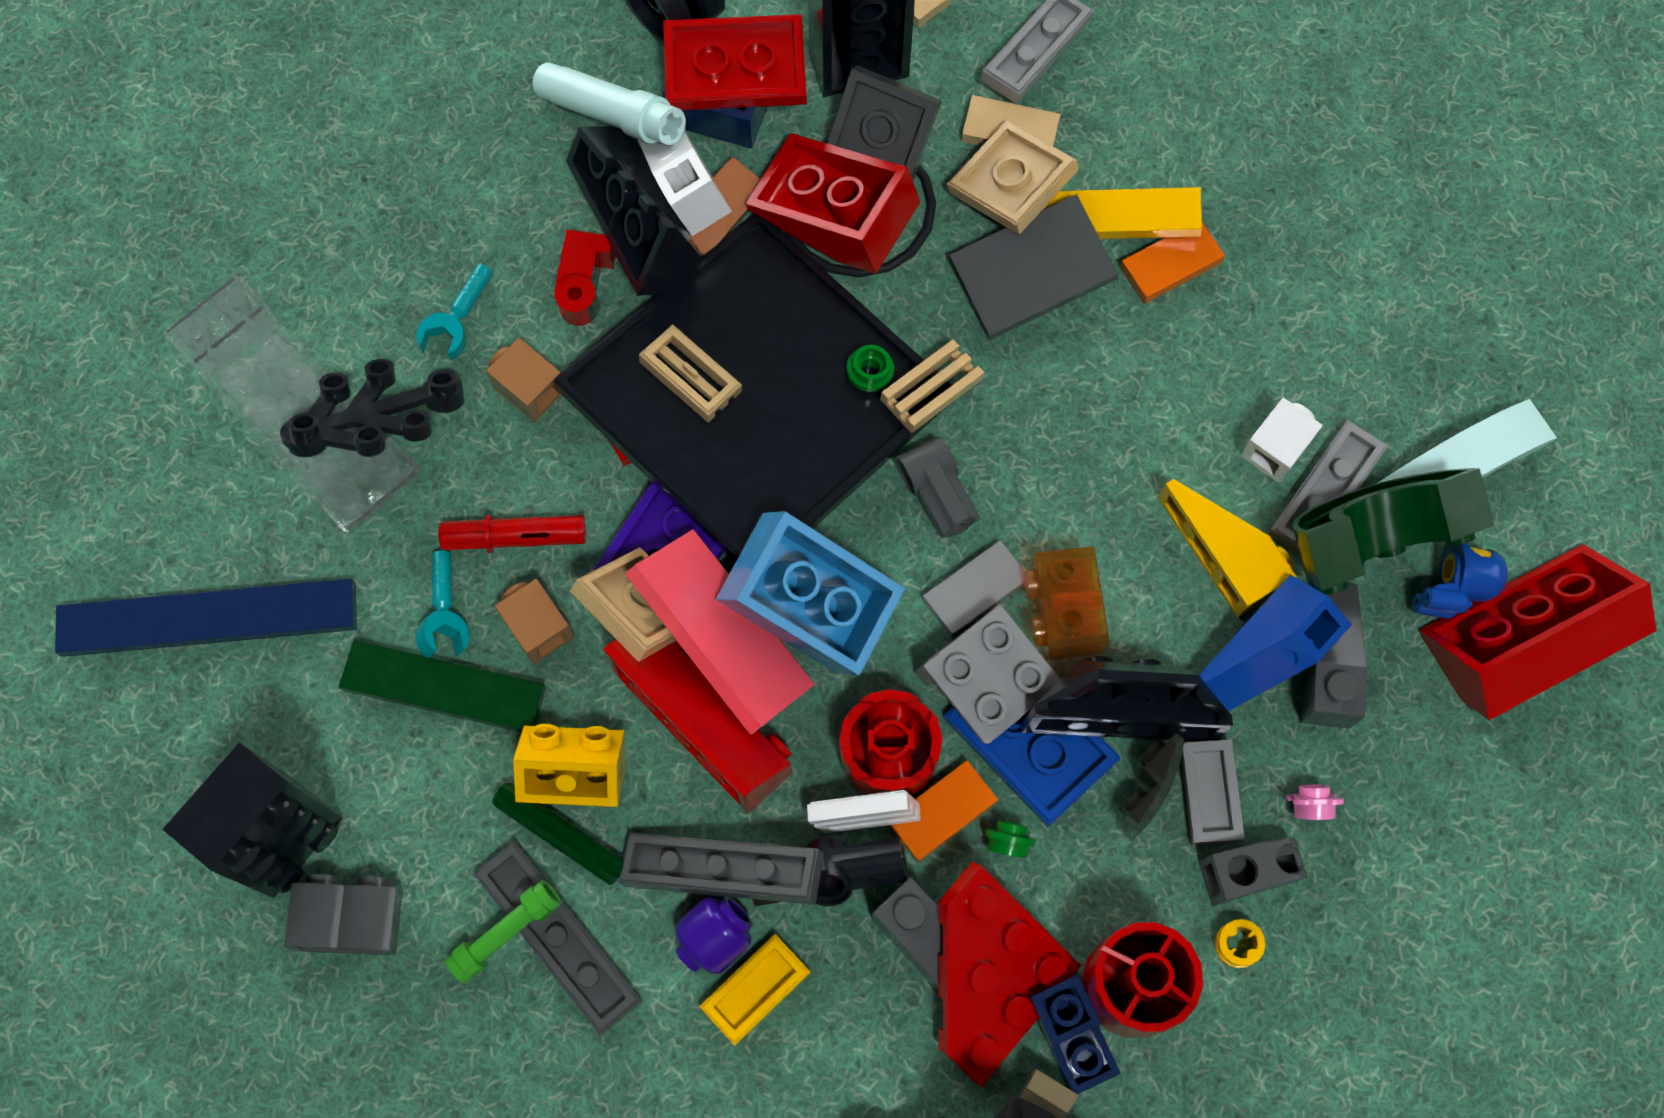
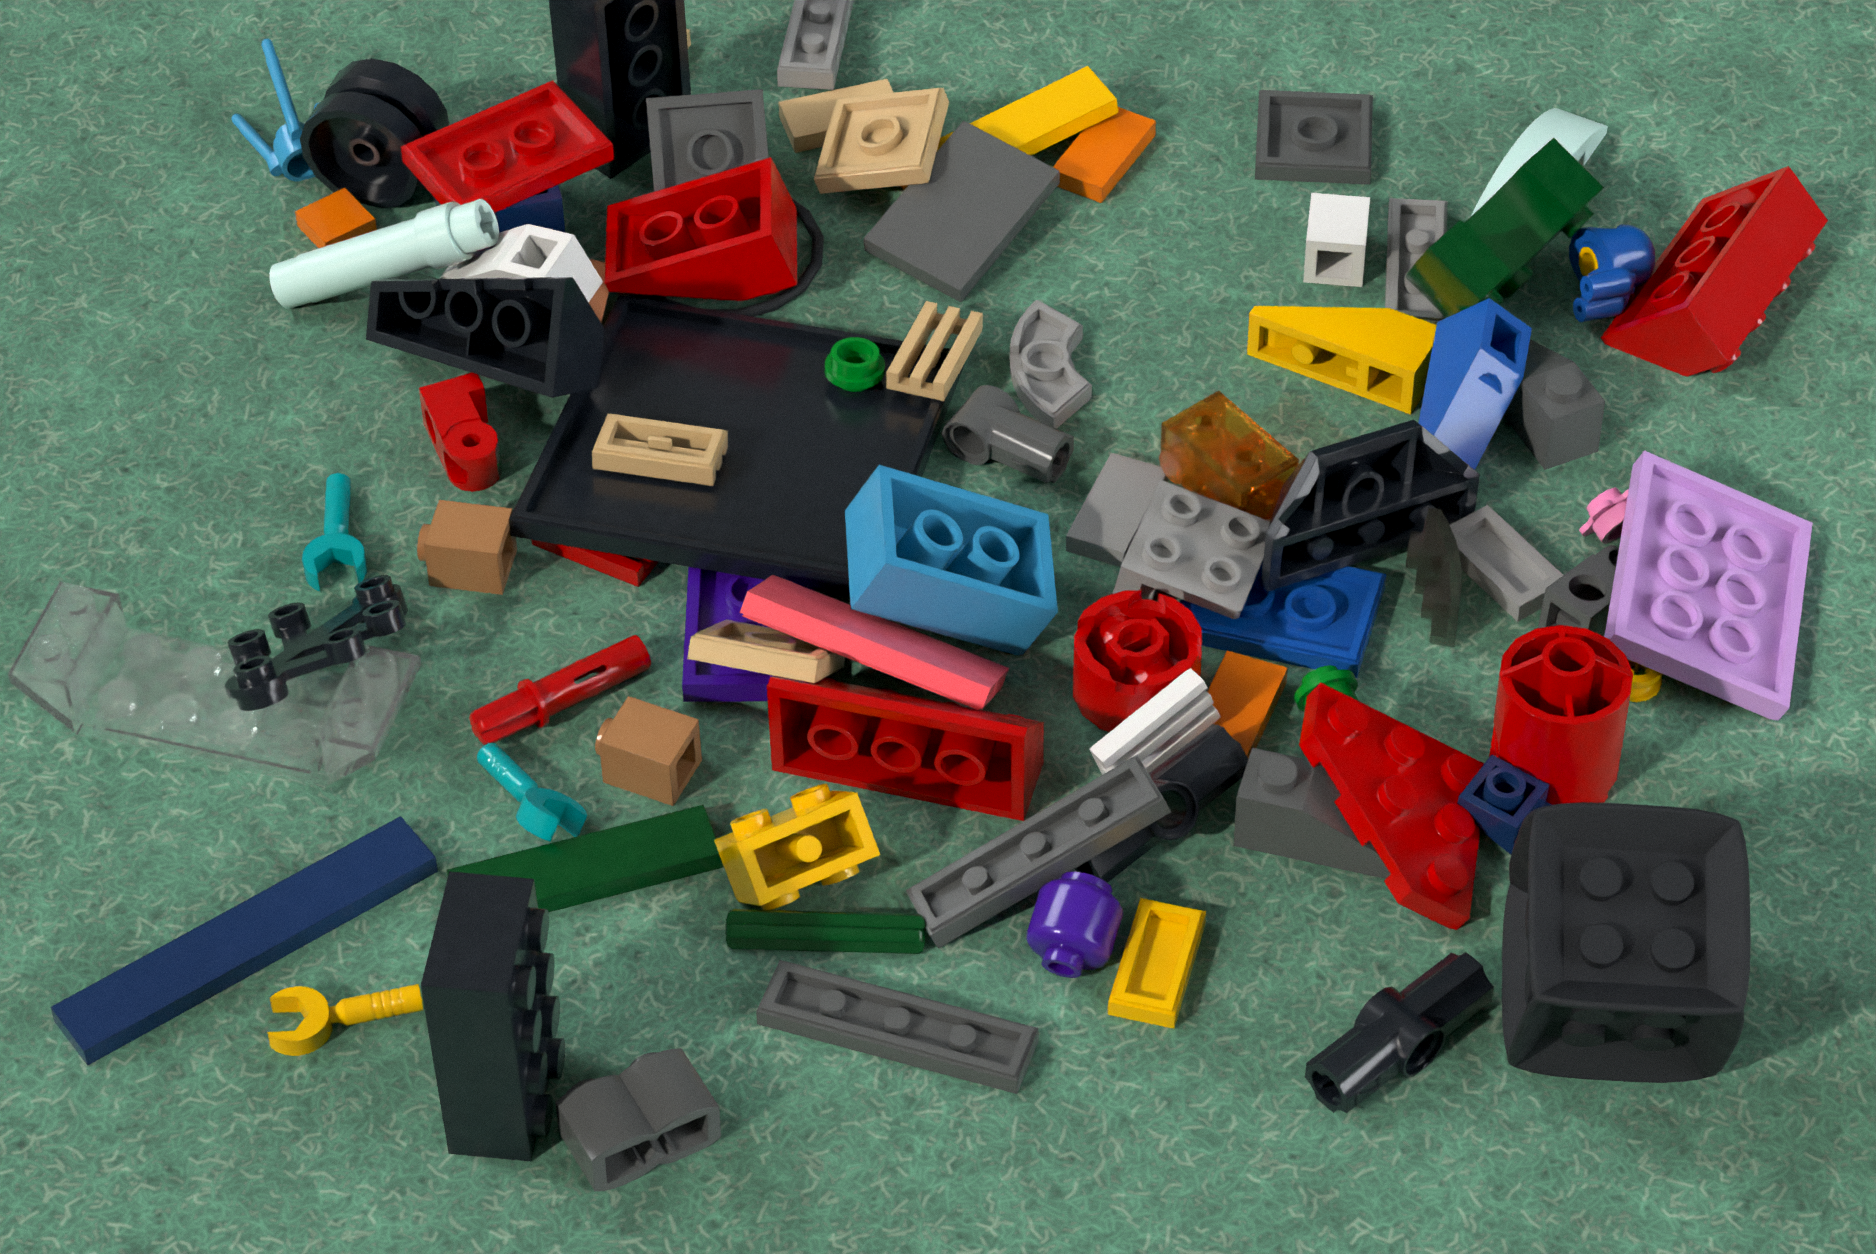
camera: 30 degrees left, 25 degrees down
(214, 707) = (319, 1017): none -> yellow piece
(470, 958) = (814, 1087): bright green bar -> none
(616, 40) = (334, 219): none -> orange tile
(1007, 430) = (1043, 364): none -> light grey tile
(1333, 329) = (1314, 137): none -> dark grey tile
(1336, 913) = (1709, 586): none -> lavender plate

